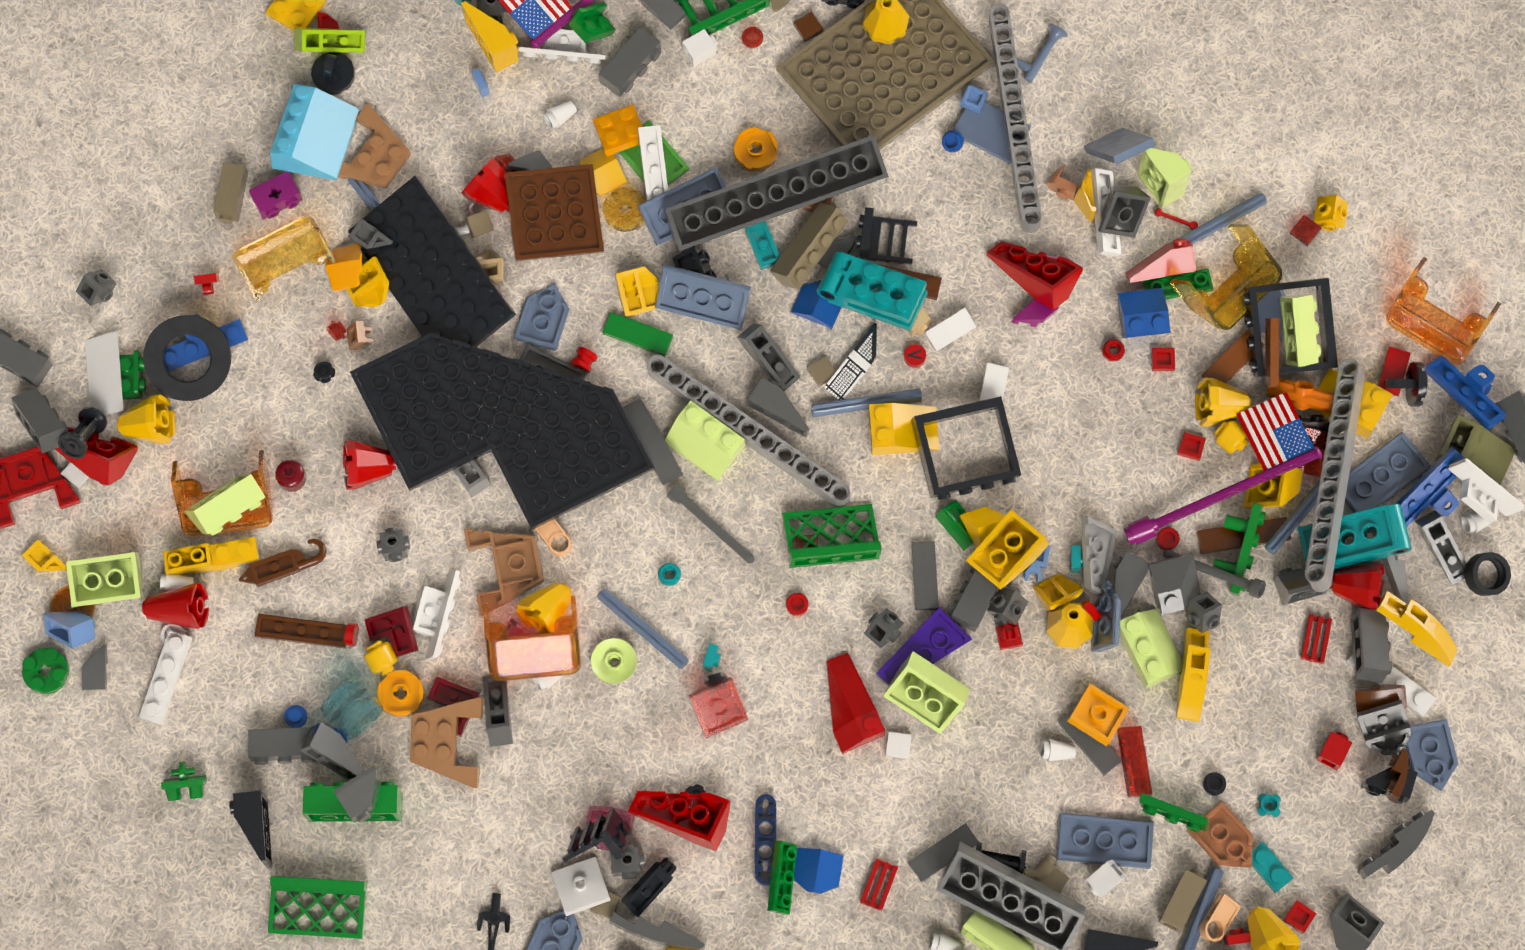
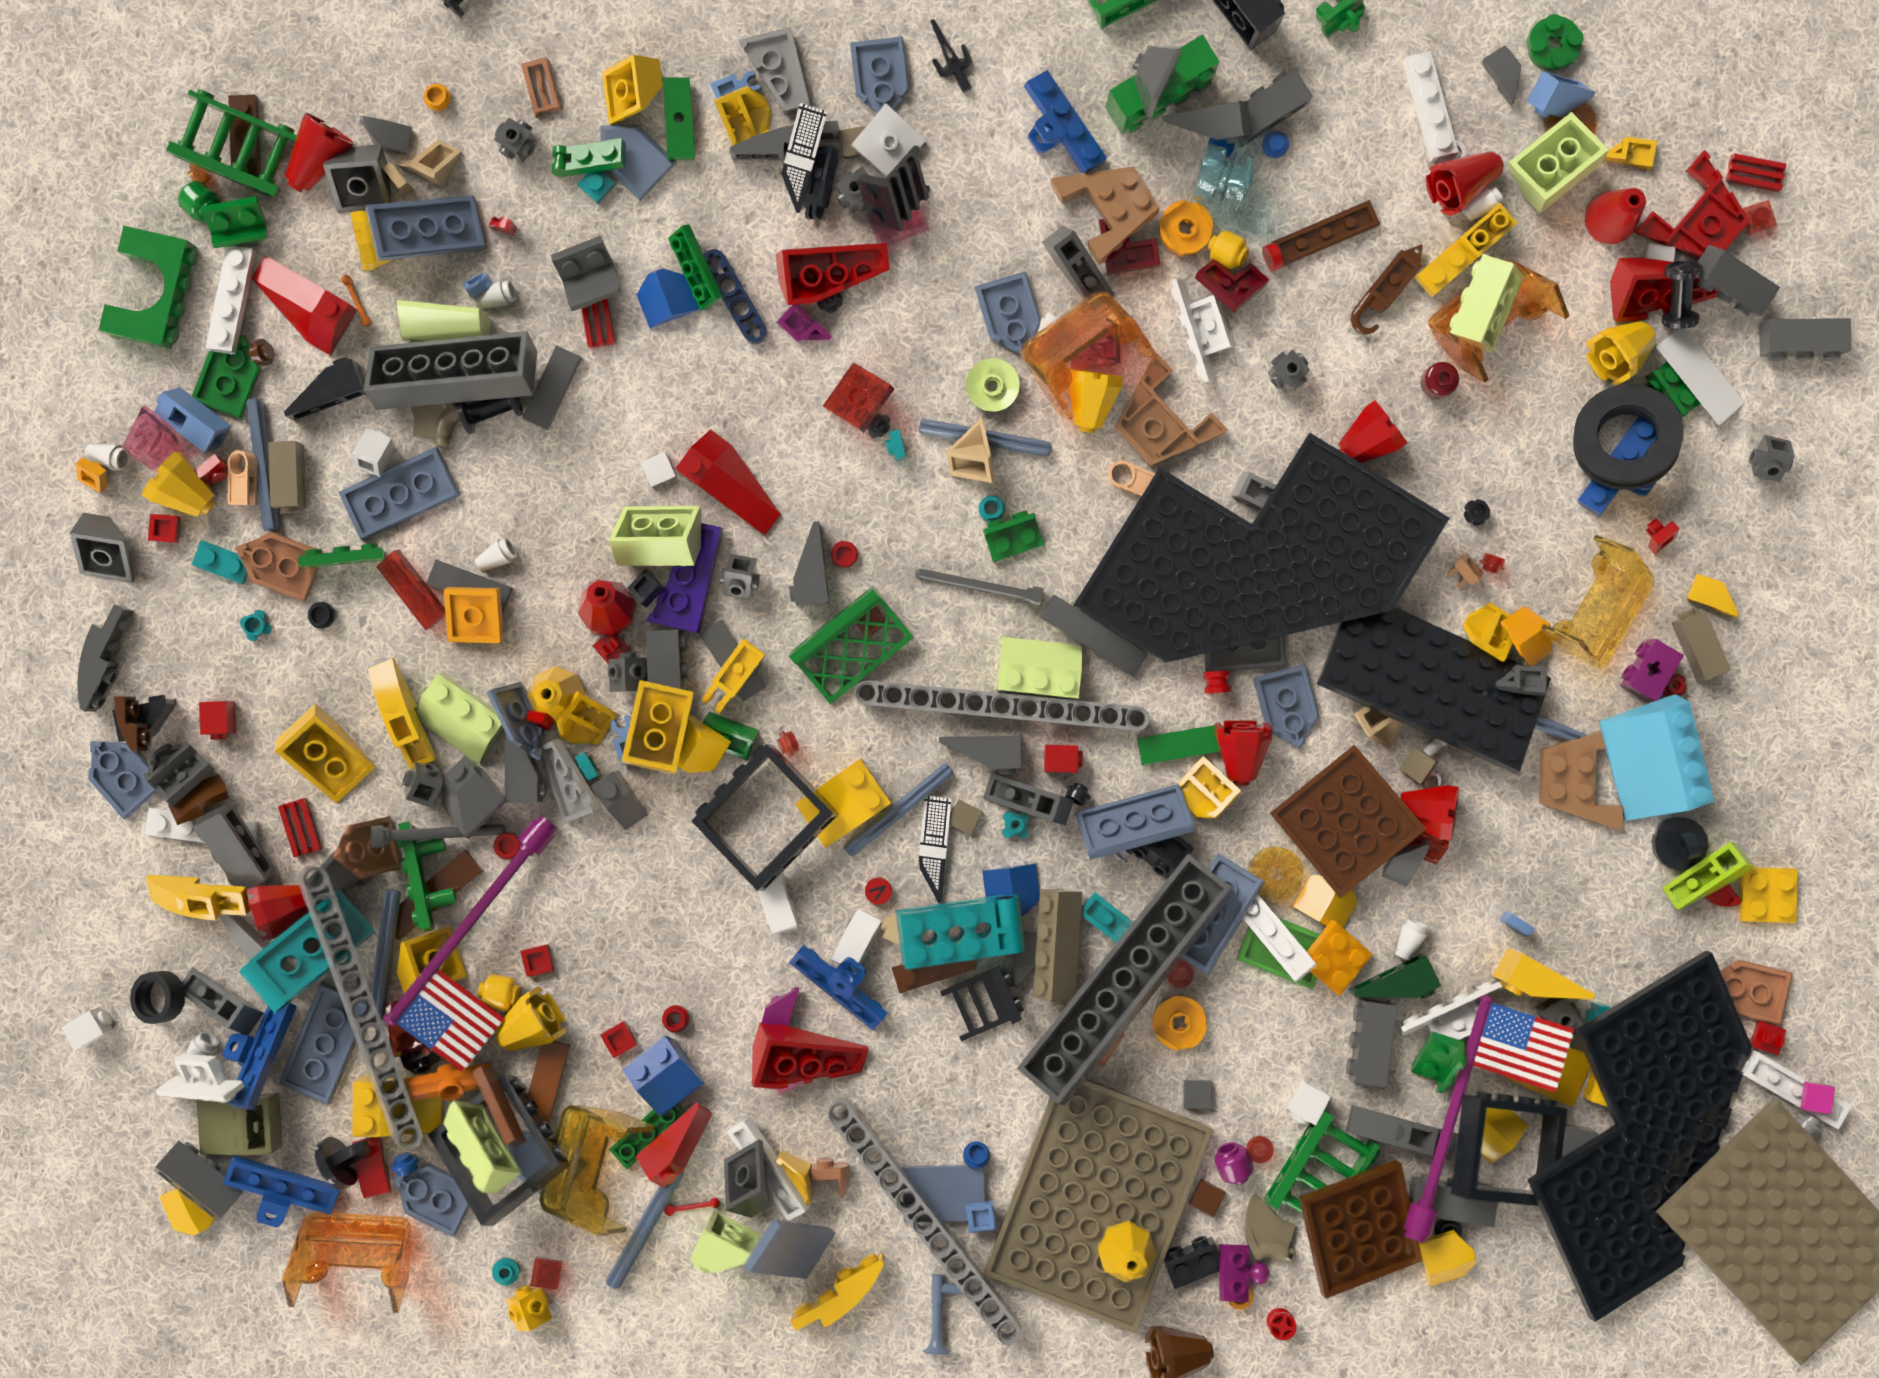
camera: 145 degrees right, 15 degrees up
(88, 521) = (1614, 214): none -> red cone
(199, 222) = (1712, 595): none -> yellow slope
(271, 173) = (1680, 687): none -> red plate
(443, 824) = (1061, 124): none -> blue plate
(567, 709) = (1009, 310): none -> sand blue tile
(583, 89) = (1406, 980): none -> dark green slope
(594, 304) = (1243, 748): none -> red cone
(649, 913) = (802, 152): none -> sticker
(660, 616) = (971, 455): none -> tan slope
(666, 545) = (1012, 536): none -> green bracket
(727, 370) = (1062, 758): none -> red brick
(728, 787) = (801, 325): none -> magenta slope
(731, 341) = (1078, 793): none -> black plate
(734, 177) = (1181, 975): none -> clear red plate
(773, 96) = (1197, 1094): none -> dark grey tile
(776, 37) = (1233, 1163): none -> magenta head
(795, 344) = (1010, 819): none -> teal plate
(832, 600) = (810, 577): none -> dark grey slope
(867, 915) = (587, 273): none -> dark grey bracket
(919, 493) = (787, 743): none -> clear red plate
(928, 561) = (734, 673): none -> yellow hinge
(958, 662) = (645, 588): none -> black plate
(979, 305) = (840, 984): none -> blue plate
(1005, 670) = (606, 608): none -> red cone
(1066, 524) = (619, 799): none -> dark grey slope
(1093, 102) = (850, 1288): none -> yellow slope
(1268, 680) = (324, 753): none -> yellow slope
(1277, 587) = (359, 856): none -> nougat tile
(1335, 254) = (509, 1264): none -> teal plate
(1359, 326) = (433, 1198): none -> sand blue tile
(1367, 359) = (405, 1164): none -> blue plate

